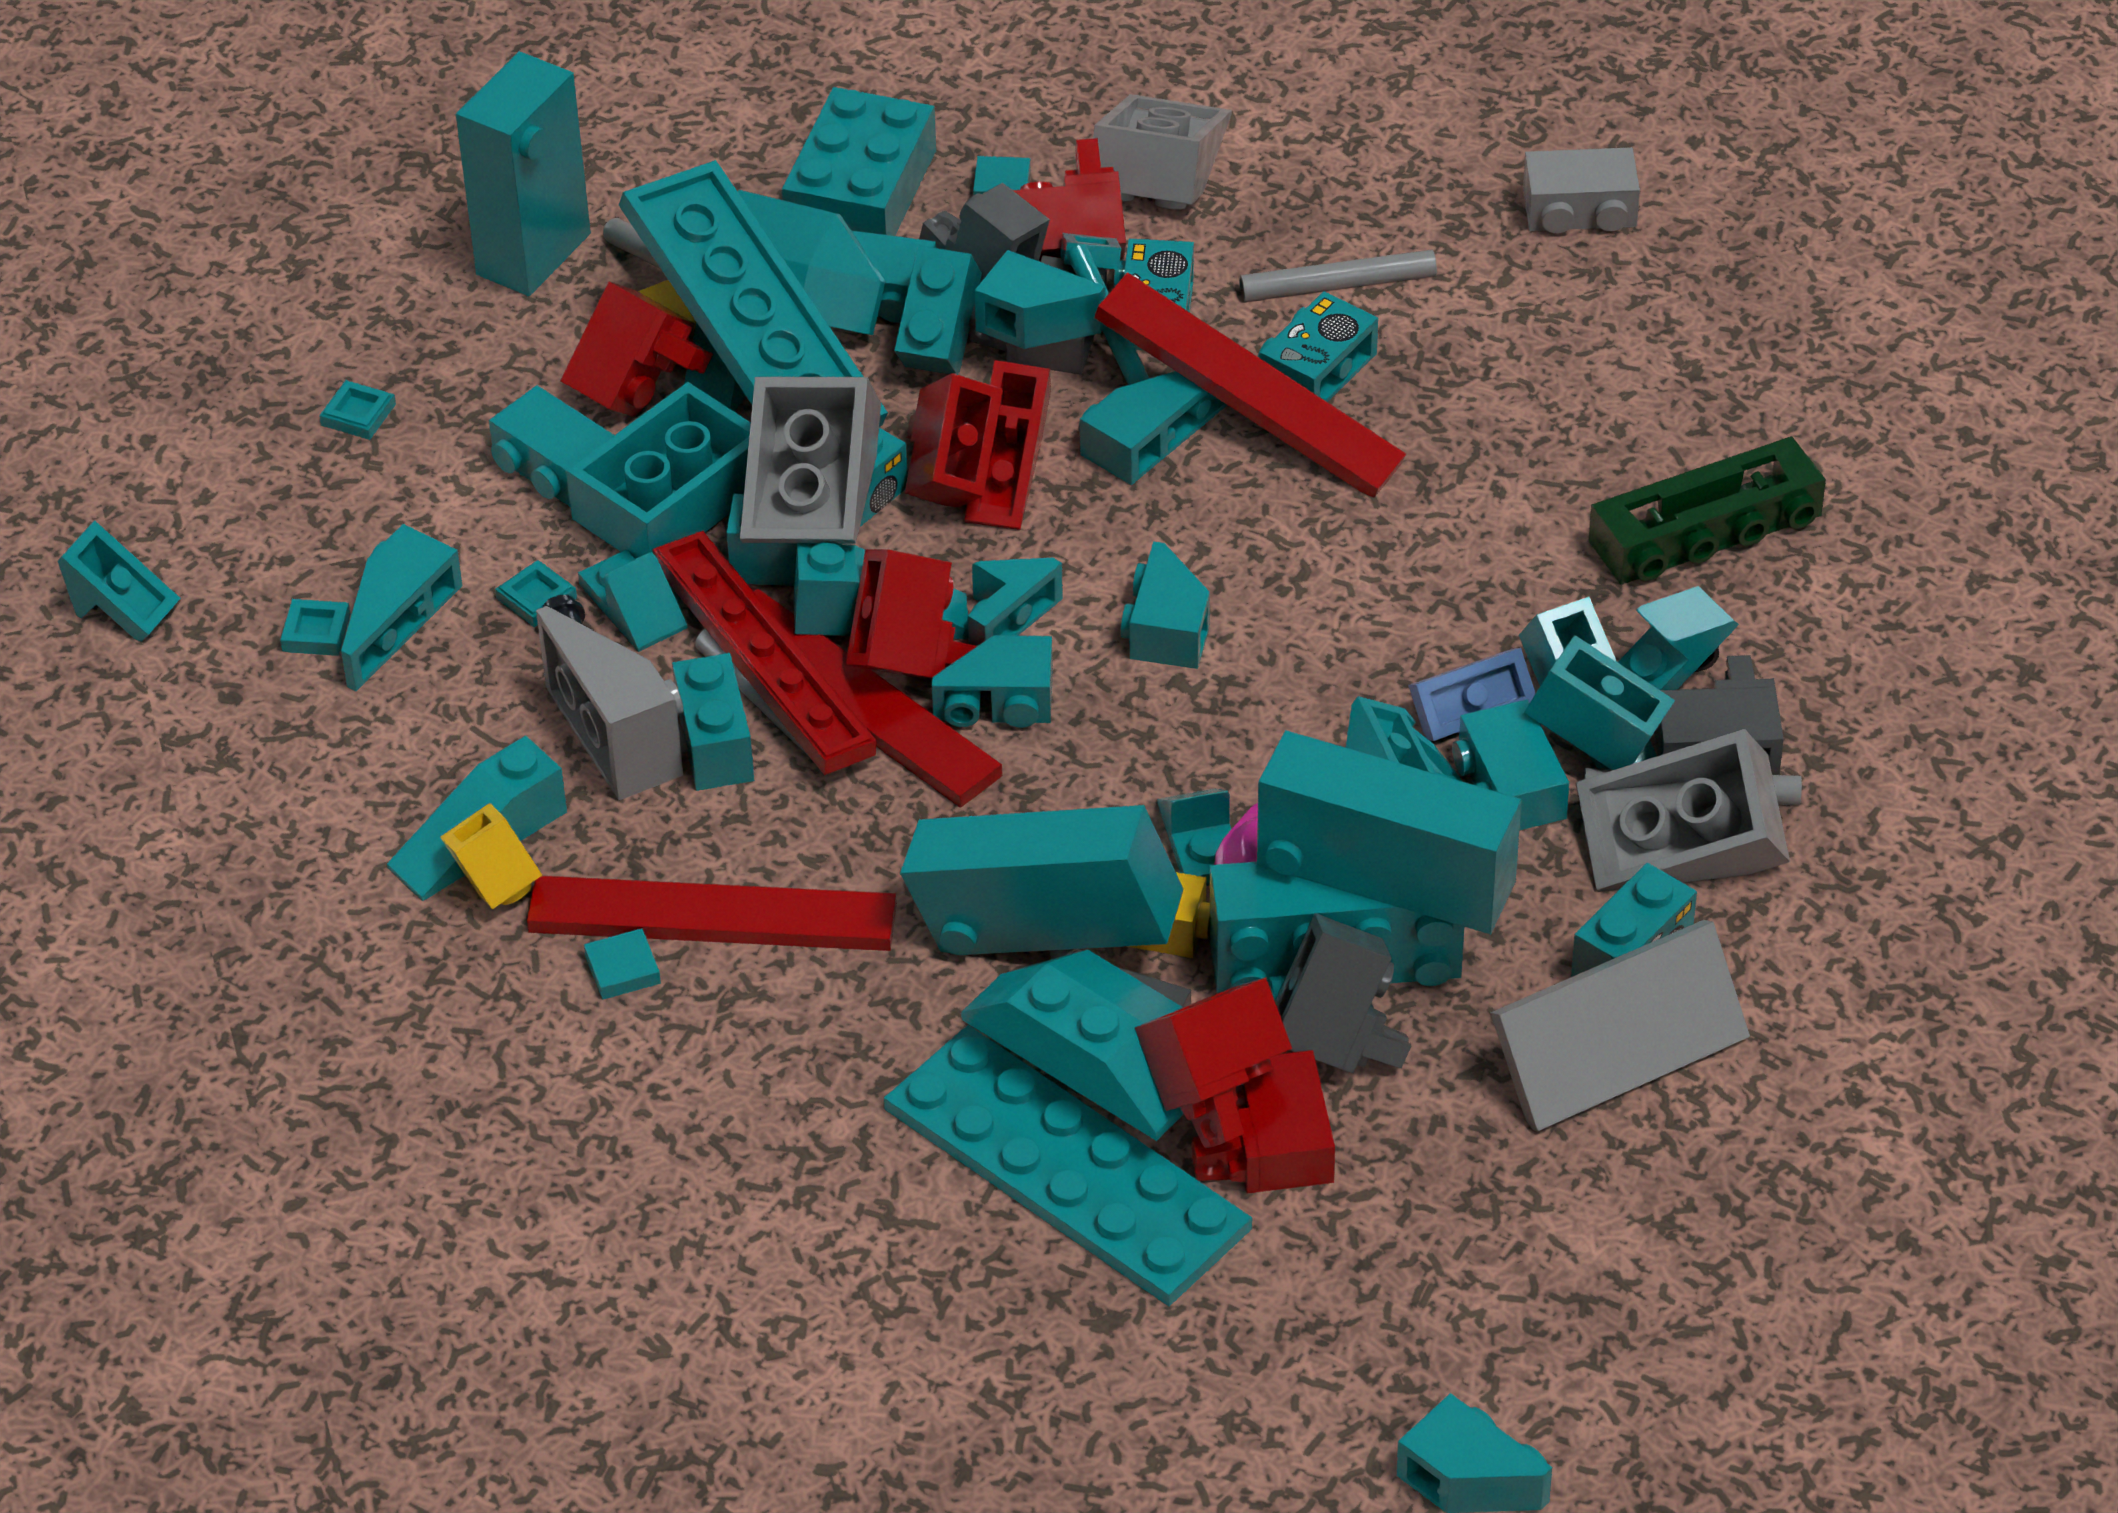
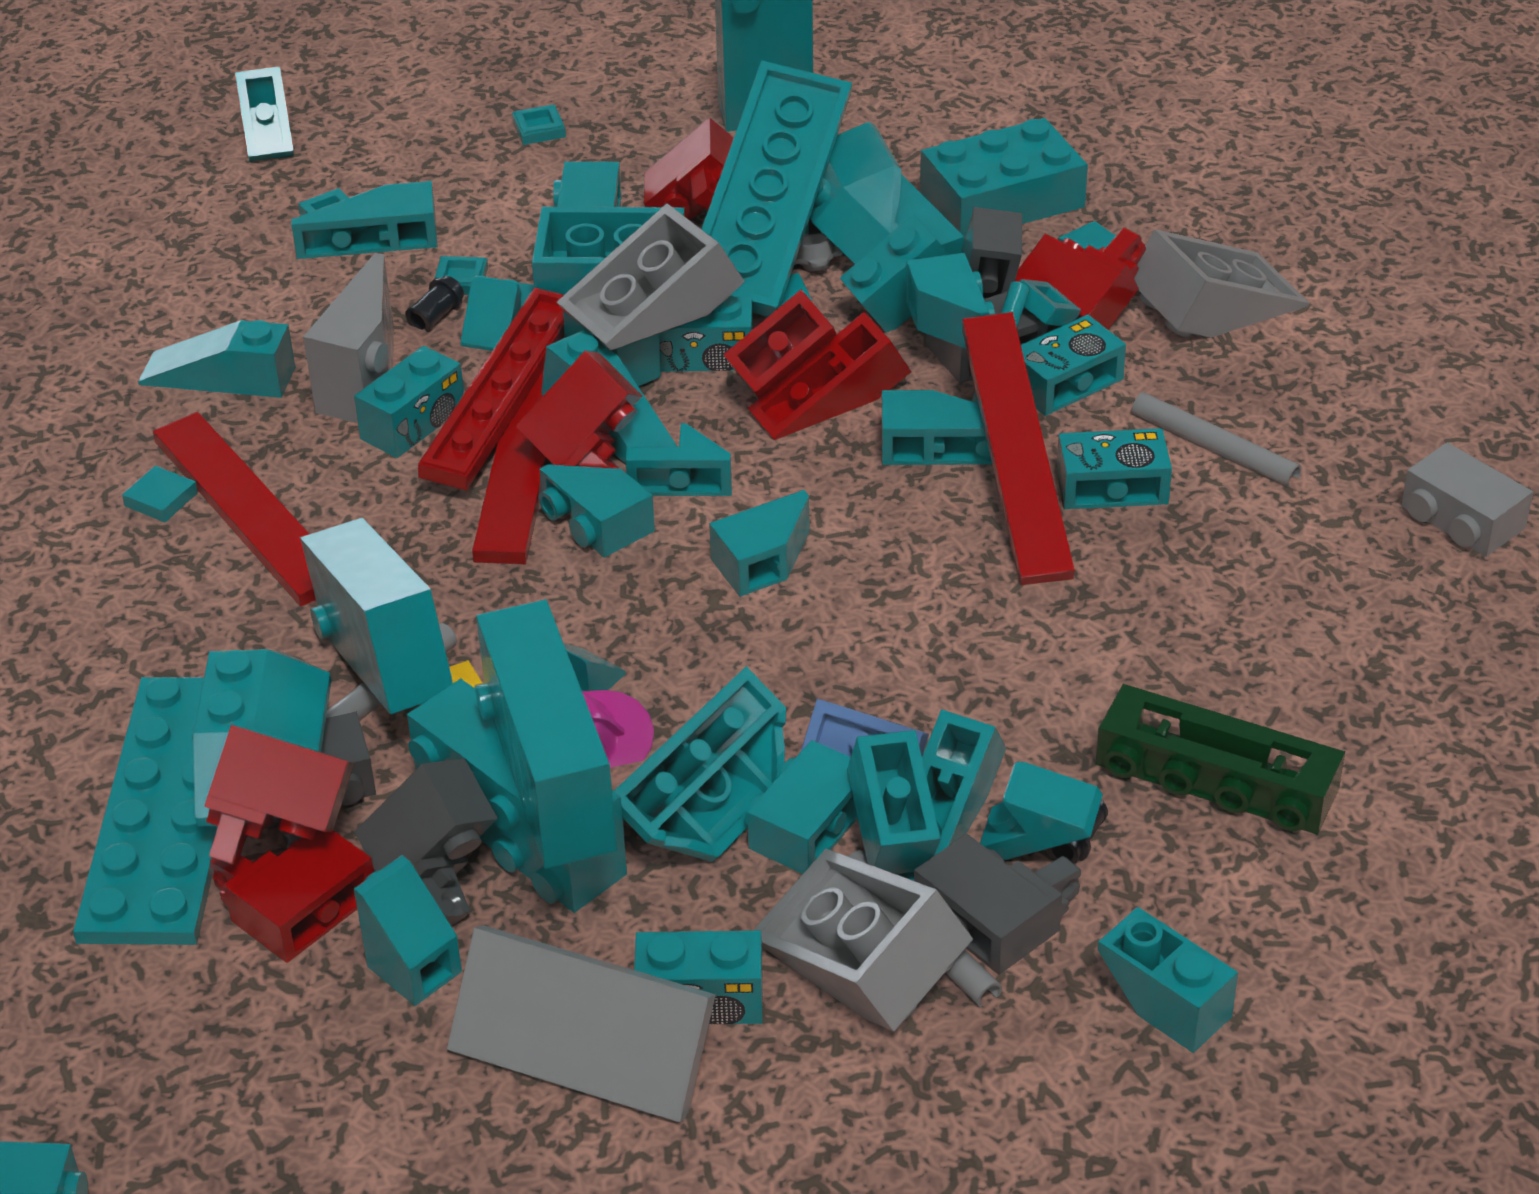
camera: 50 degrees right, 5 degrees down
(492, 857) = (176, 378): yellow brick -> none
(1420, 1077) = (406, 932): none -> teal slope
(1906, 678) = (1169, 979): none -> teal slope

